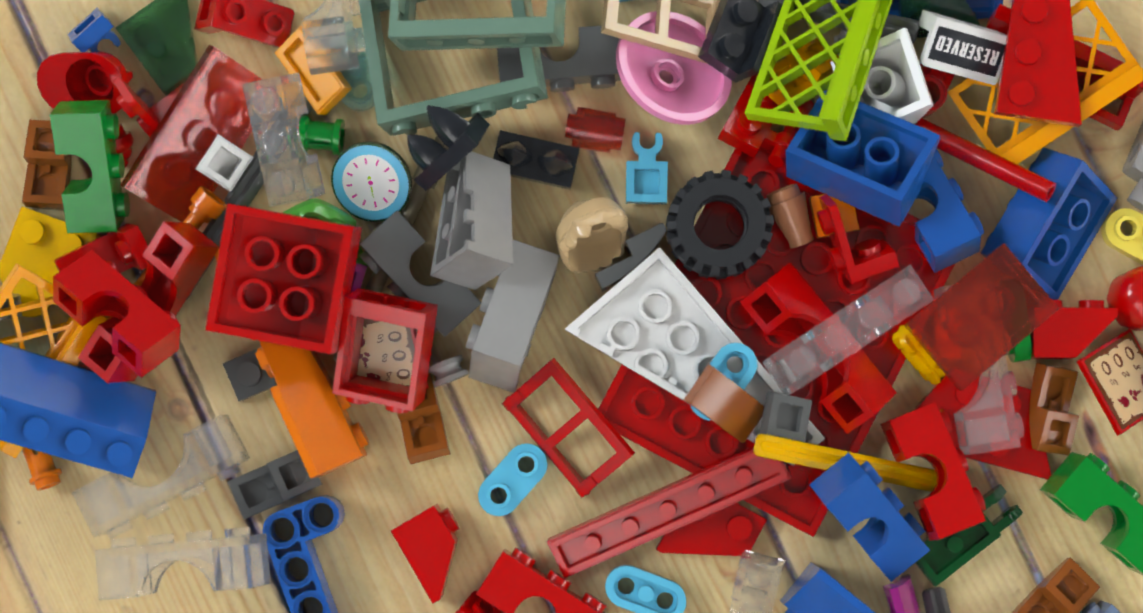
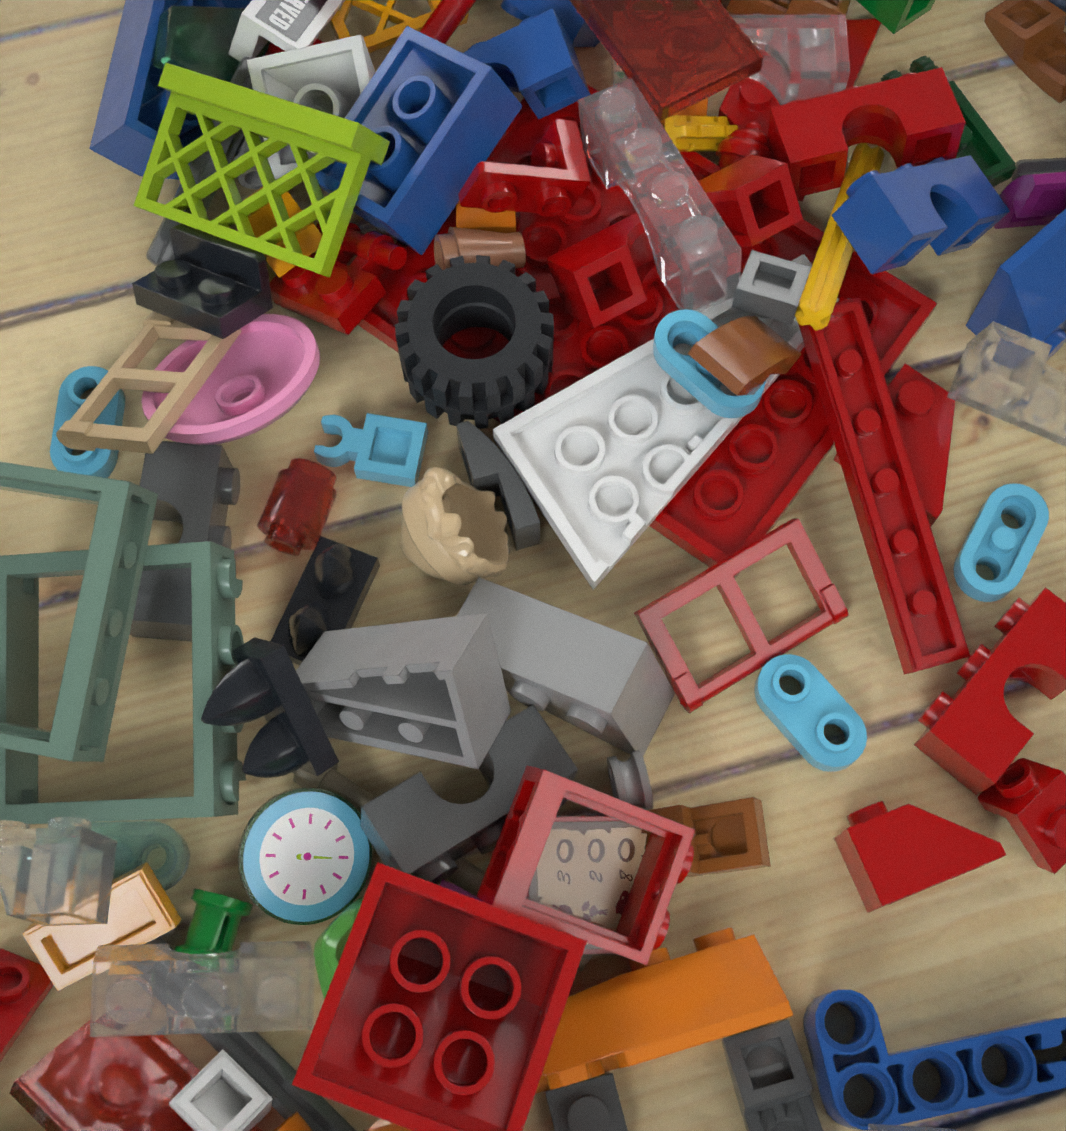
camera: 90 degrees left, 15 degrees down
(913, 391) = (742, 144): none -> red plate

